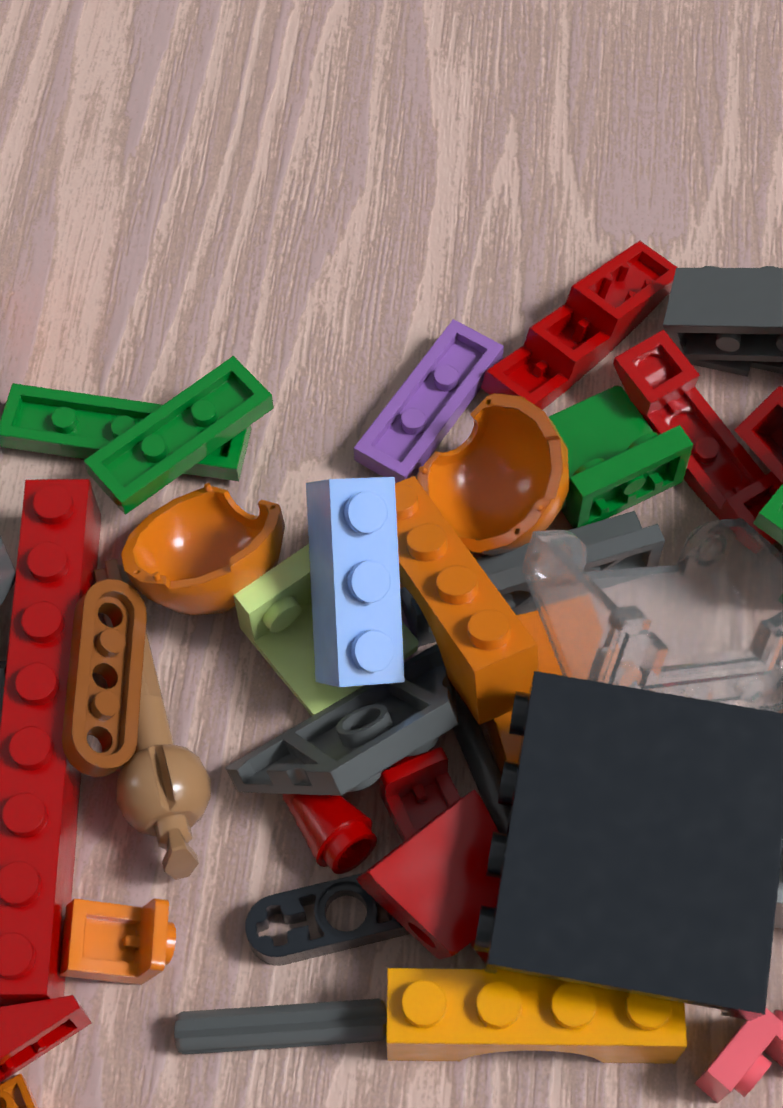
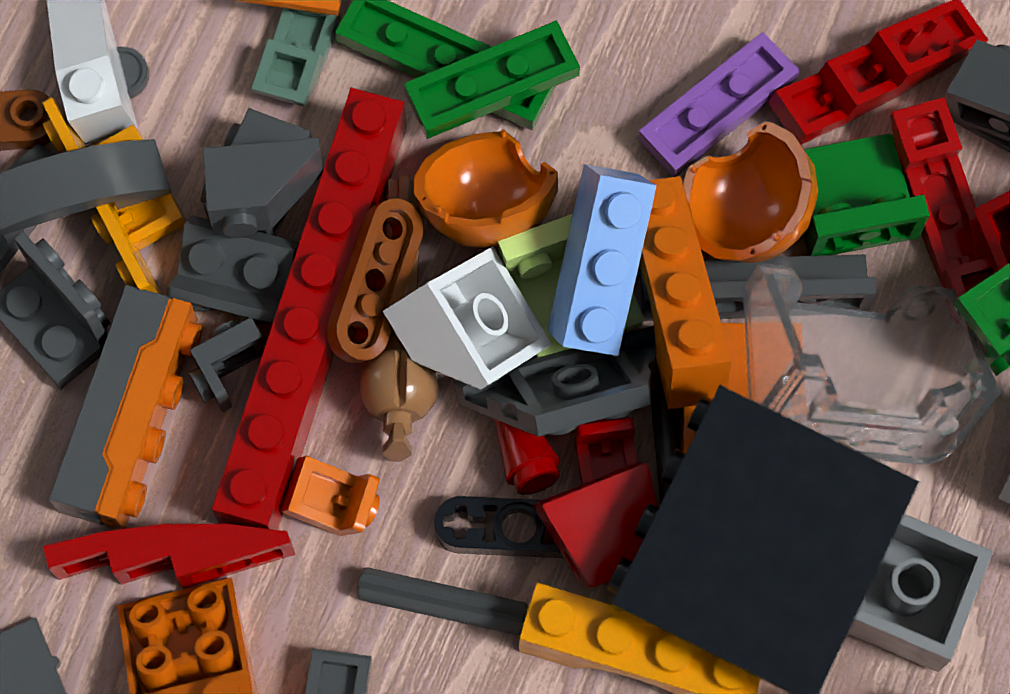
camera: 15 degrees right, 10 degrees up
(222, 692) = (469, 322): none -> white slope

